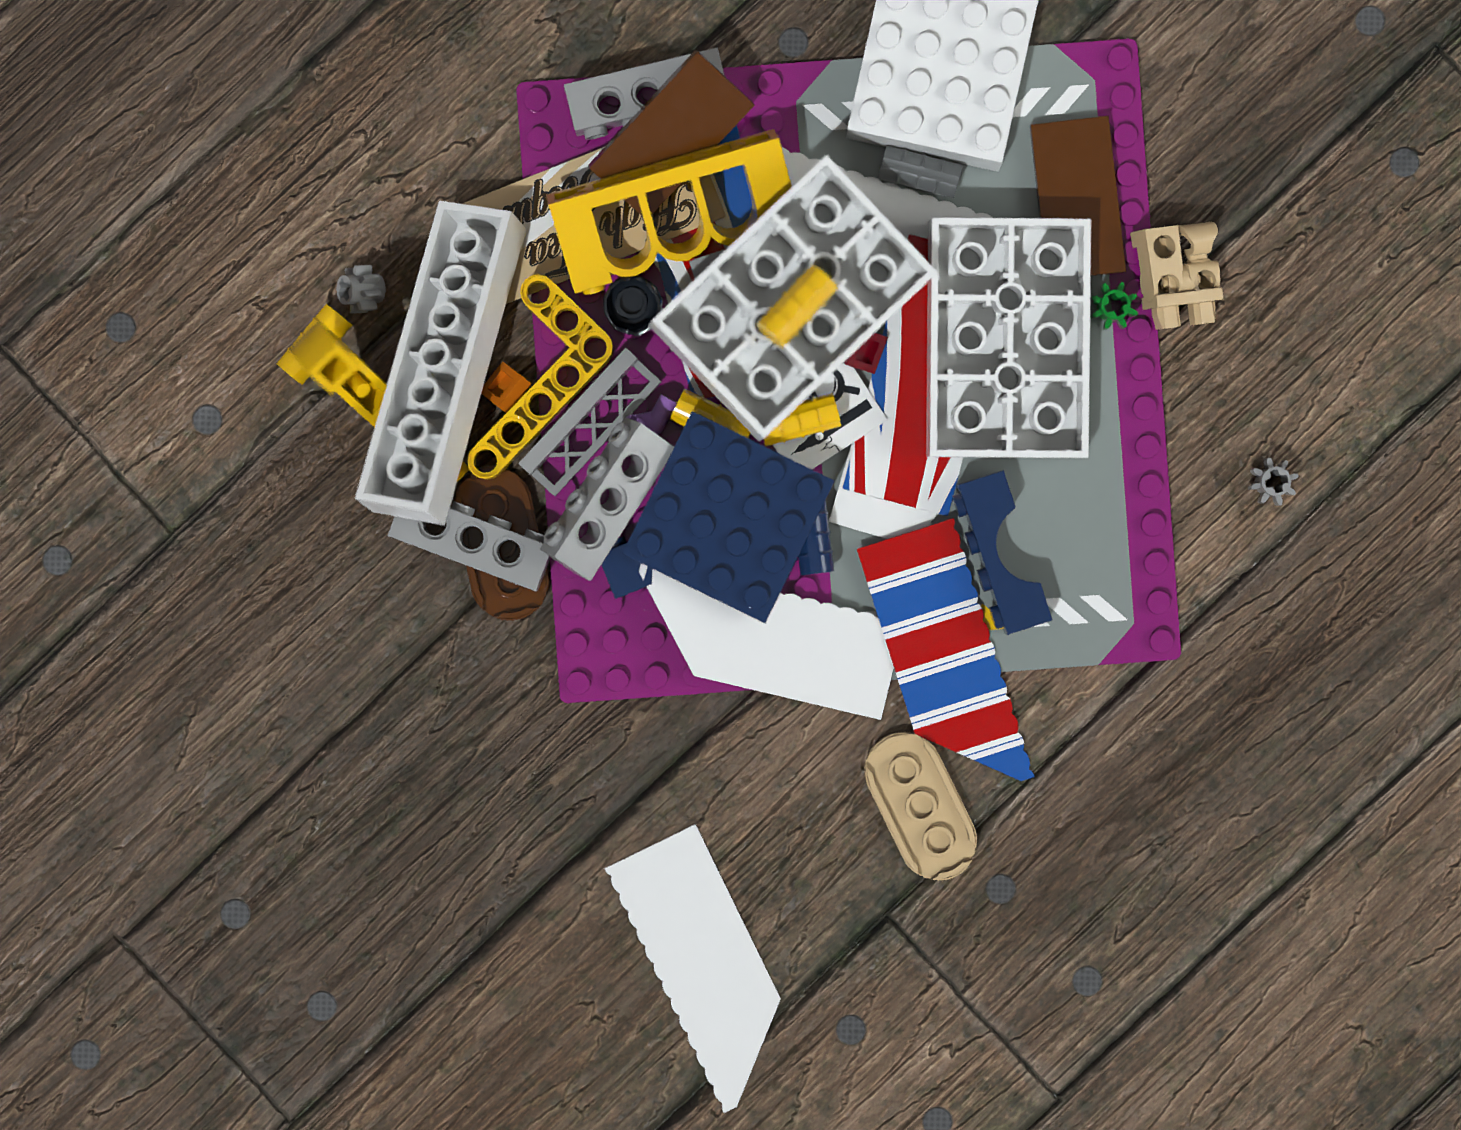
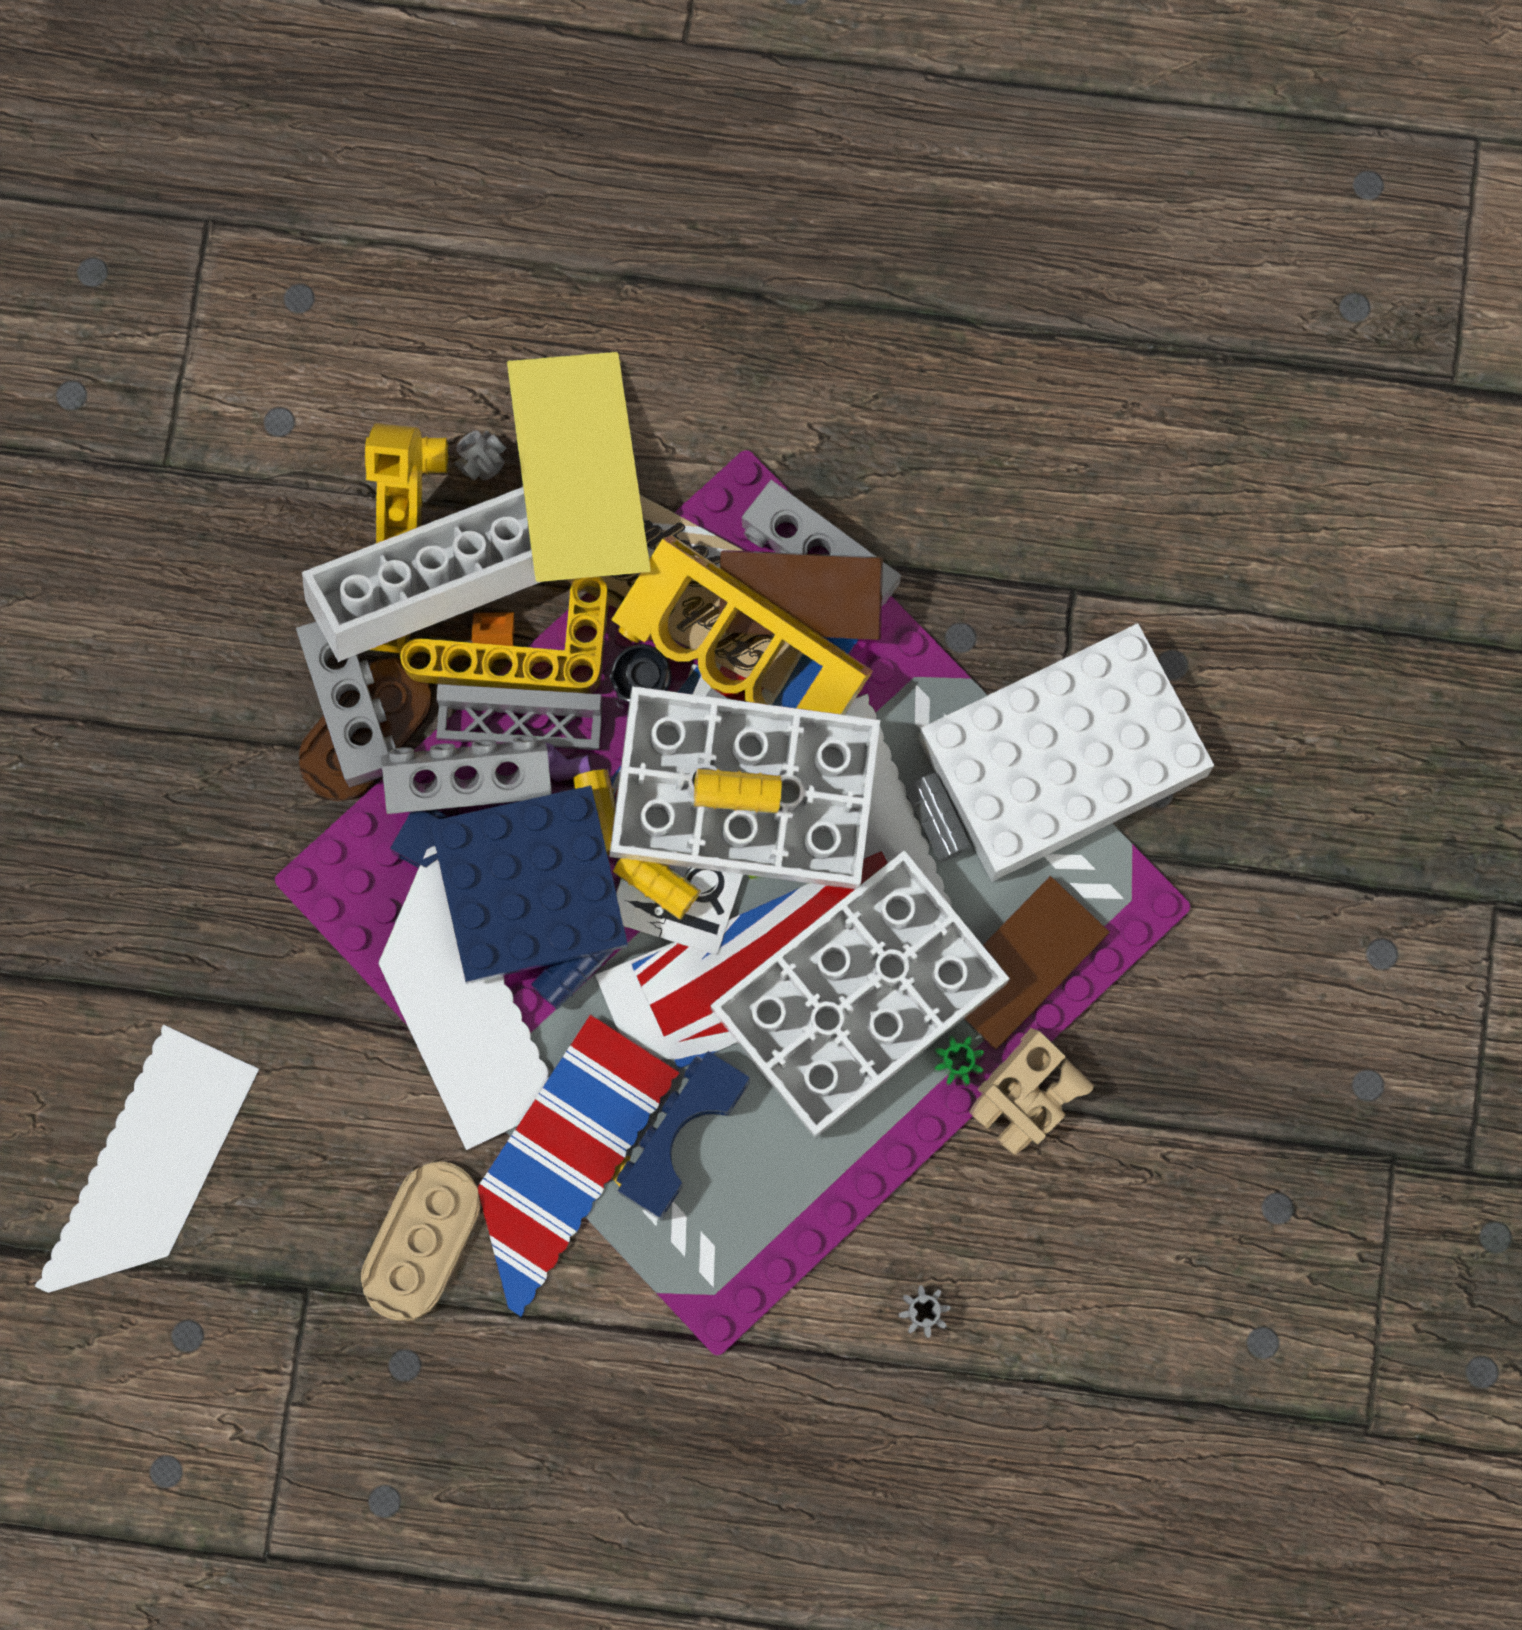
camera: 50 degrees right, 10 degrees down
(434, 222) = (577, 467): none -> light yellow sticker
(868, 354) = (756, 891): dark red plate -> none

